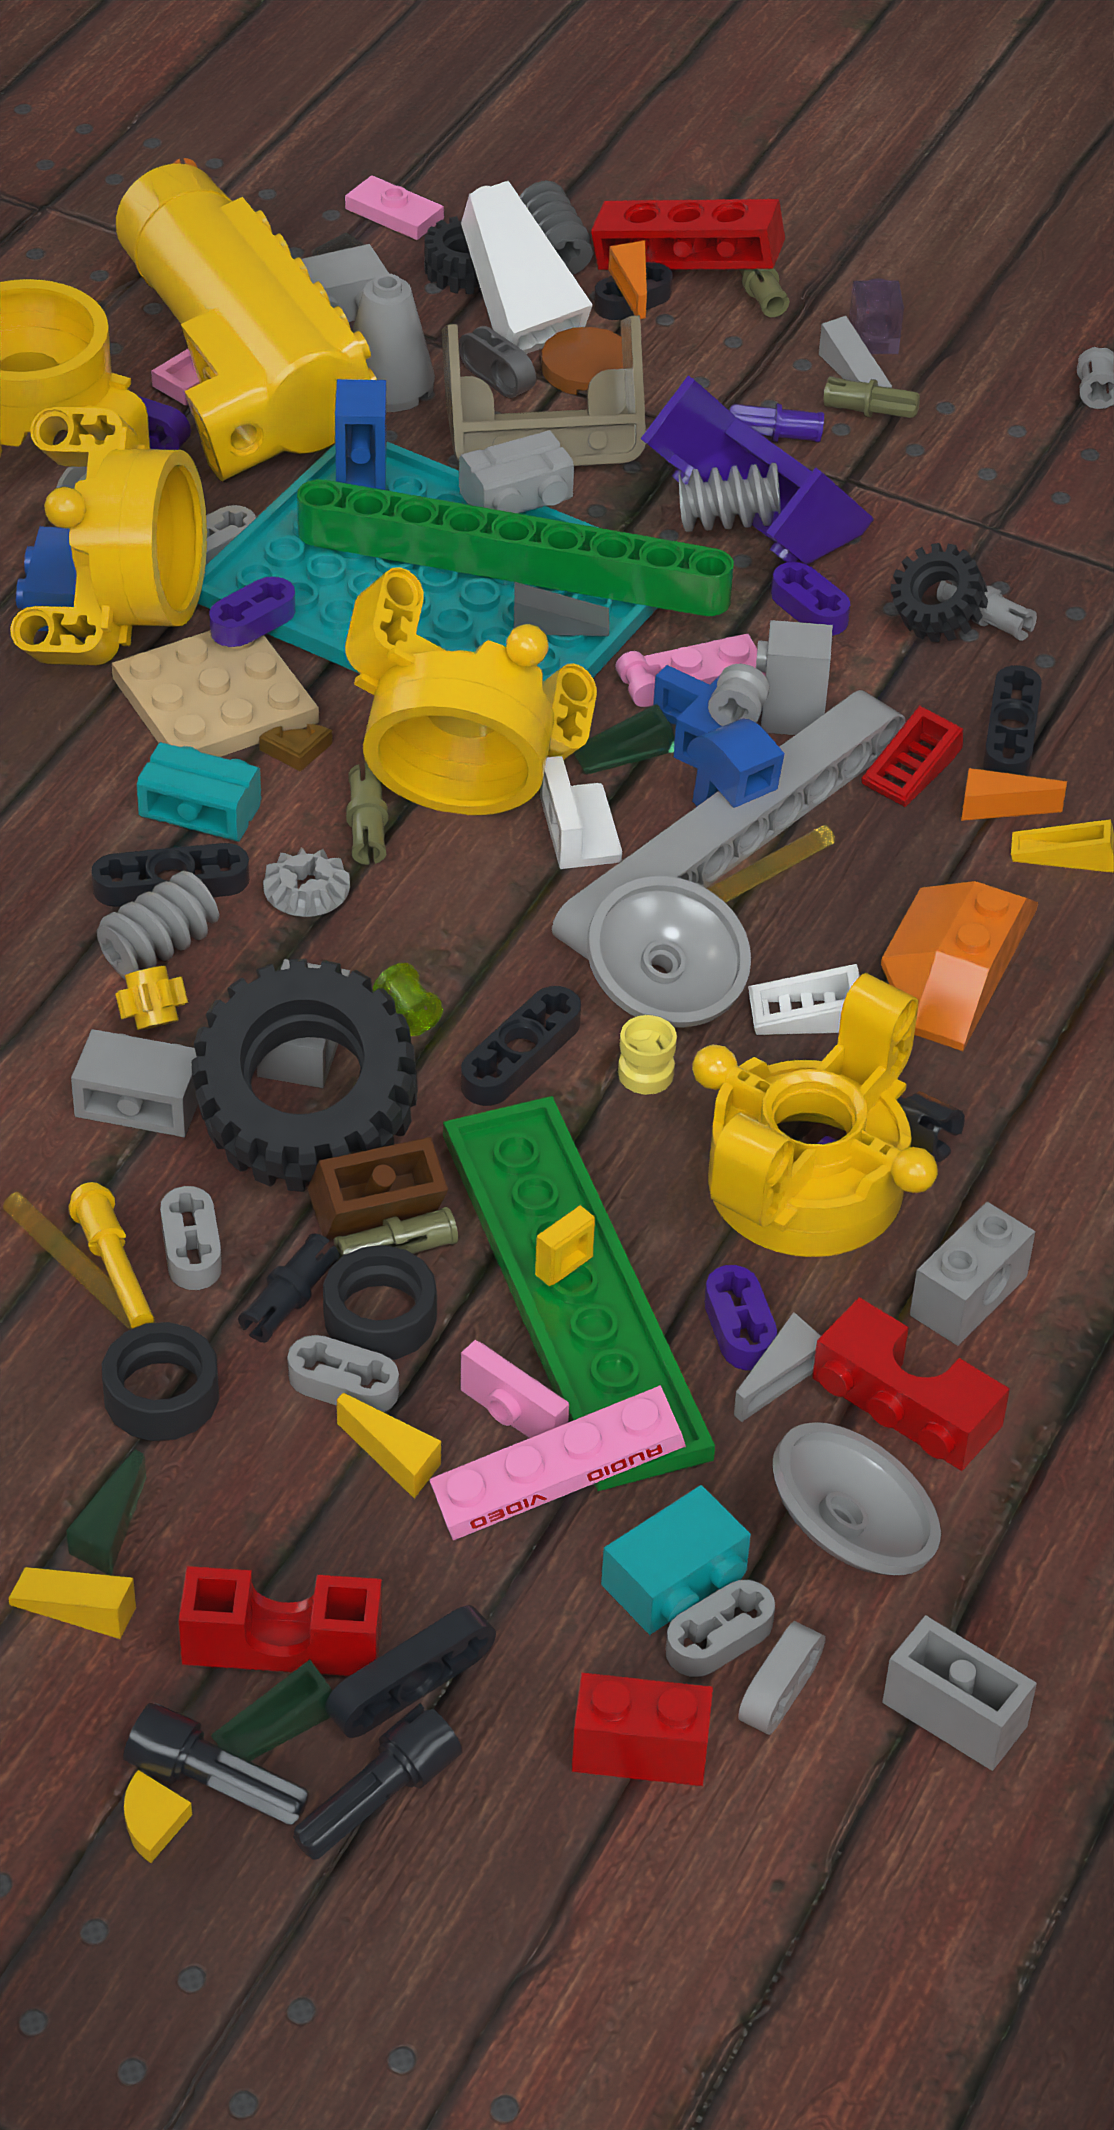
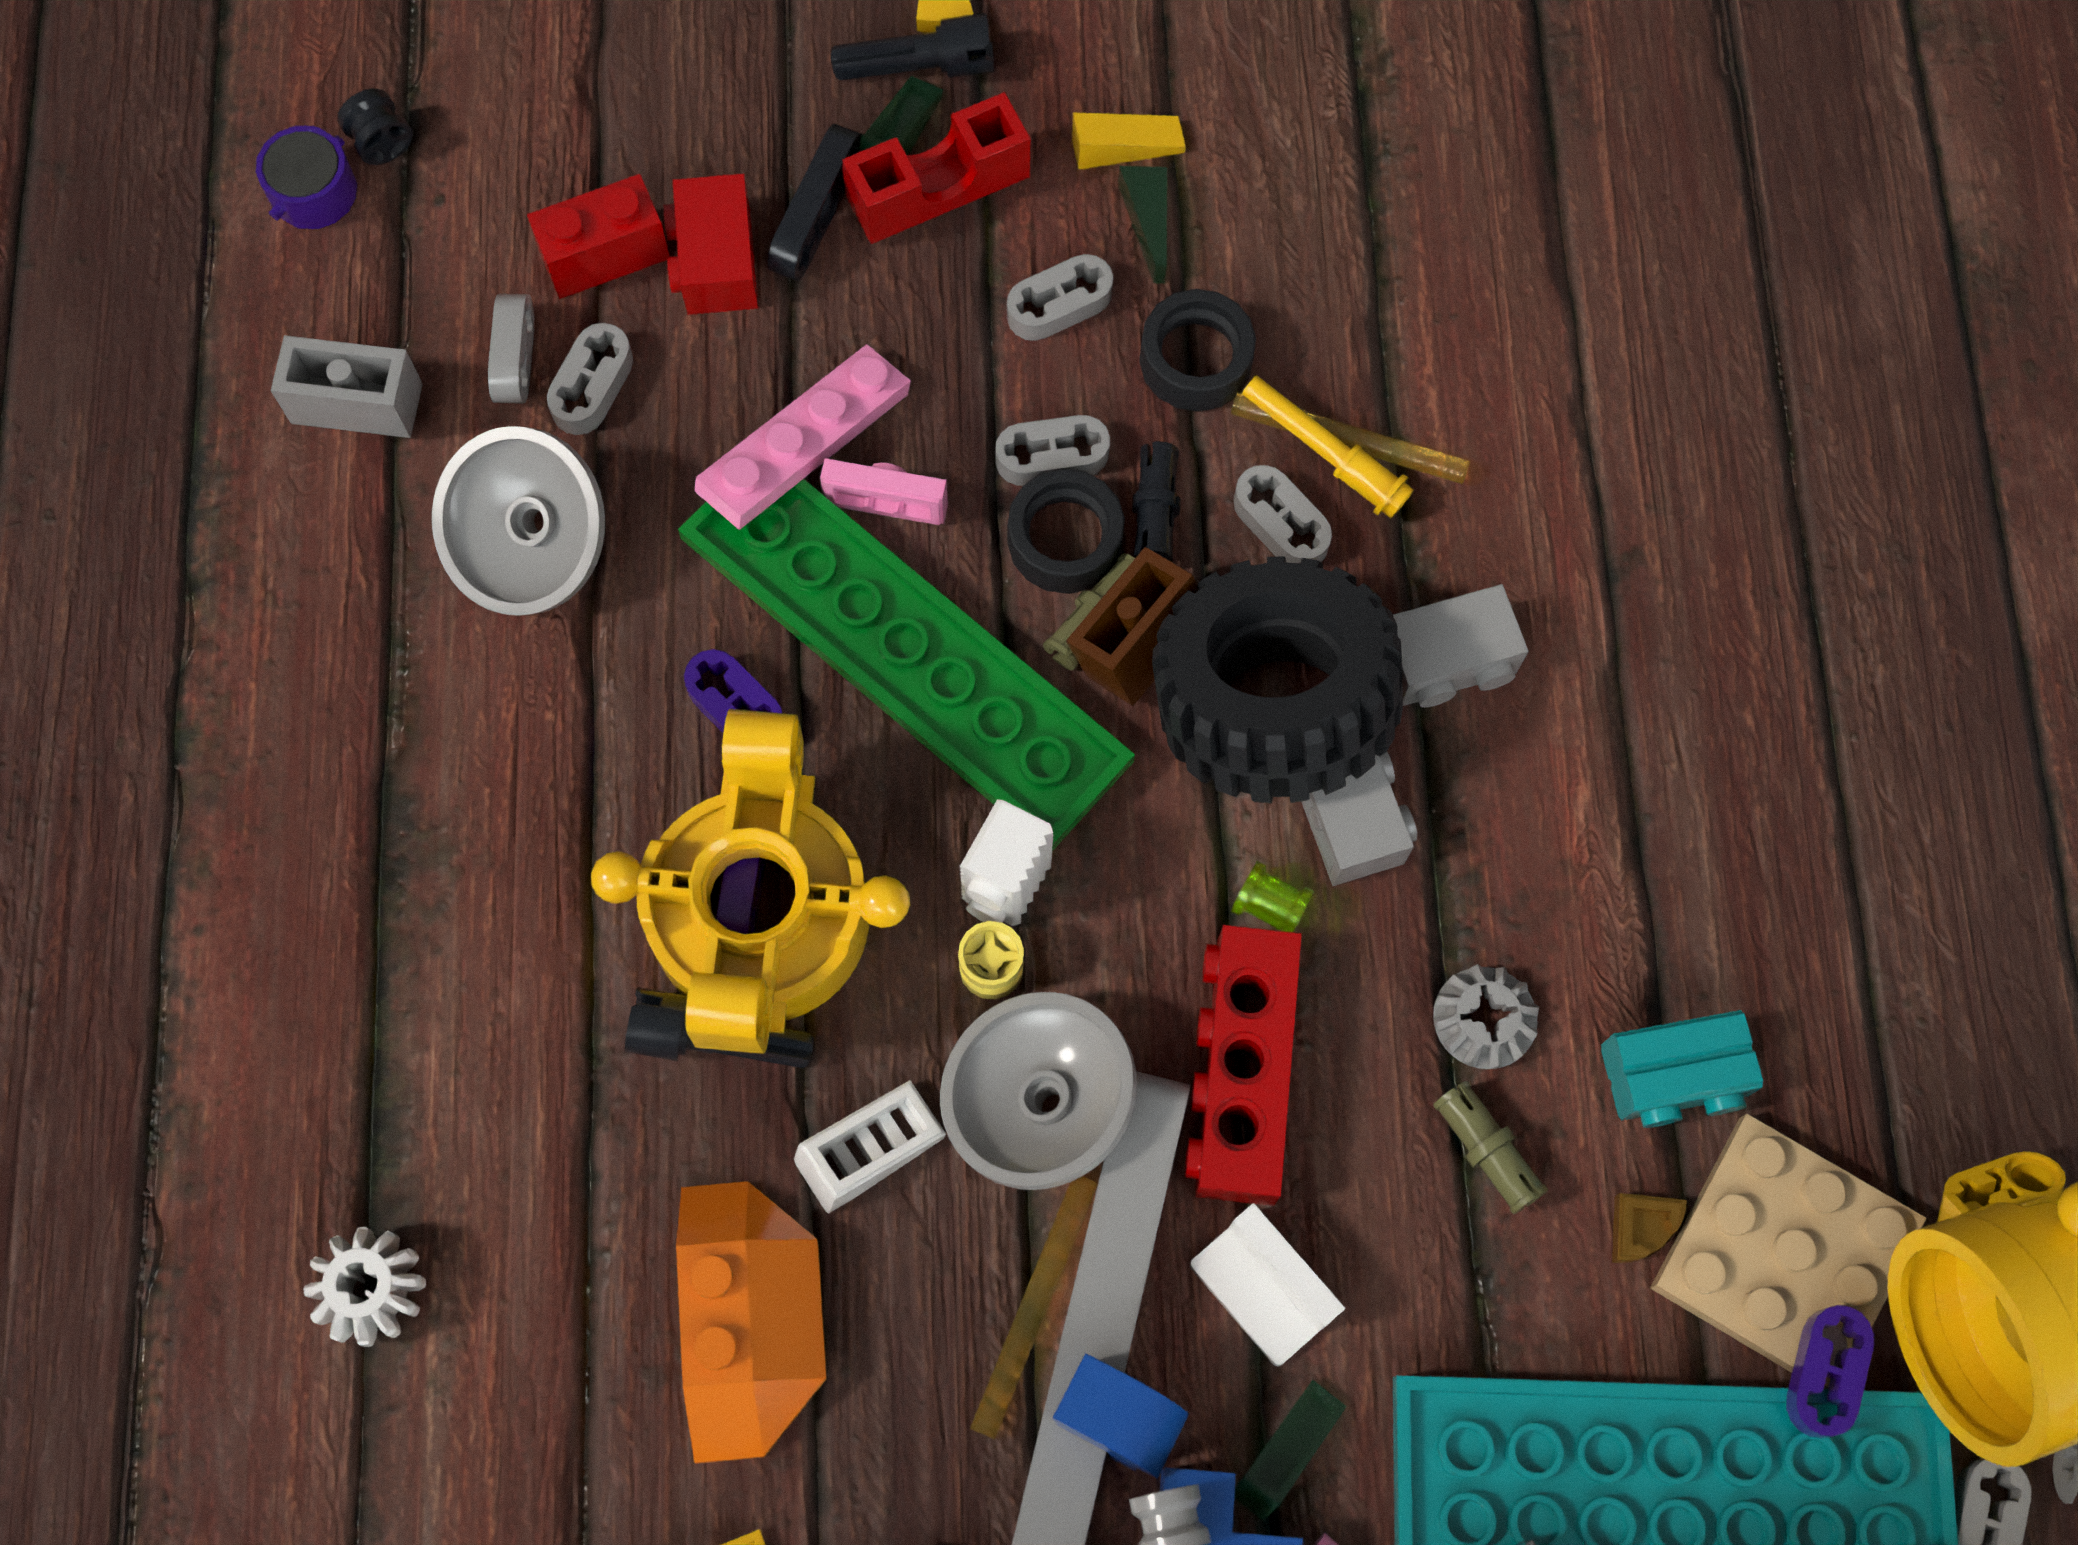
camera: 150 degrees right, 25 degrees up
(131, 865) = (1648, 904): black beam -> none
(151, 997) = (1513, 748): yellow gear -> none
(157, 923) = (1575, 836): light grey piece -> none
(243, 1491) = (1058, 294): none -> light grey beam
(397, 1447) = (963, 401): yellow piece -> none
(409, 1756) = (774, 126): black piece -> none
(460, 724) = (1445, 1254): yellow piece -> none
(500, 919) = (1271, 966): none -> red brick
(517, 1066) = (1118, 871): black beam -> none
(534, 1675) = (713, 244): none -> red brick
(565, 1246) = (918, 636): yellow tile -> none
(599, 1078) = (1006, 864): none -> white brick
(675, 1559) = (653, 405): teal brick -> none
(780, 1368) = (661, 681): light grey piece -> none
(810, 1960) = (375, 127): none -> black wheel
(906, 1946) = (306, 177): none -> piece
(943, 1414) = (484, 679): red arch -> none
(972, 1273) = (529, 851): light grey brick -> none

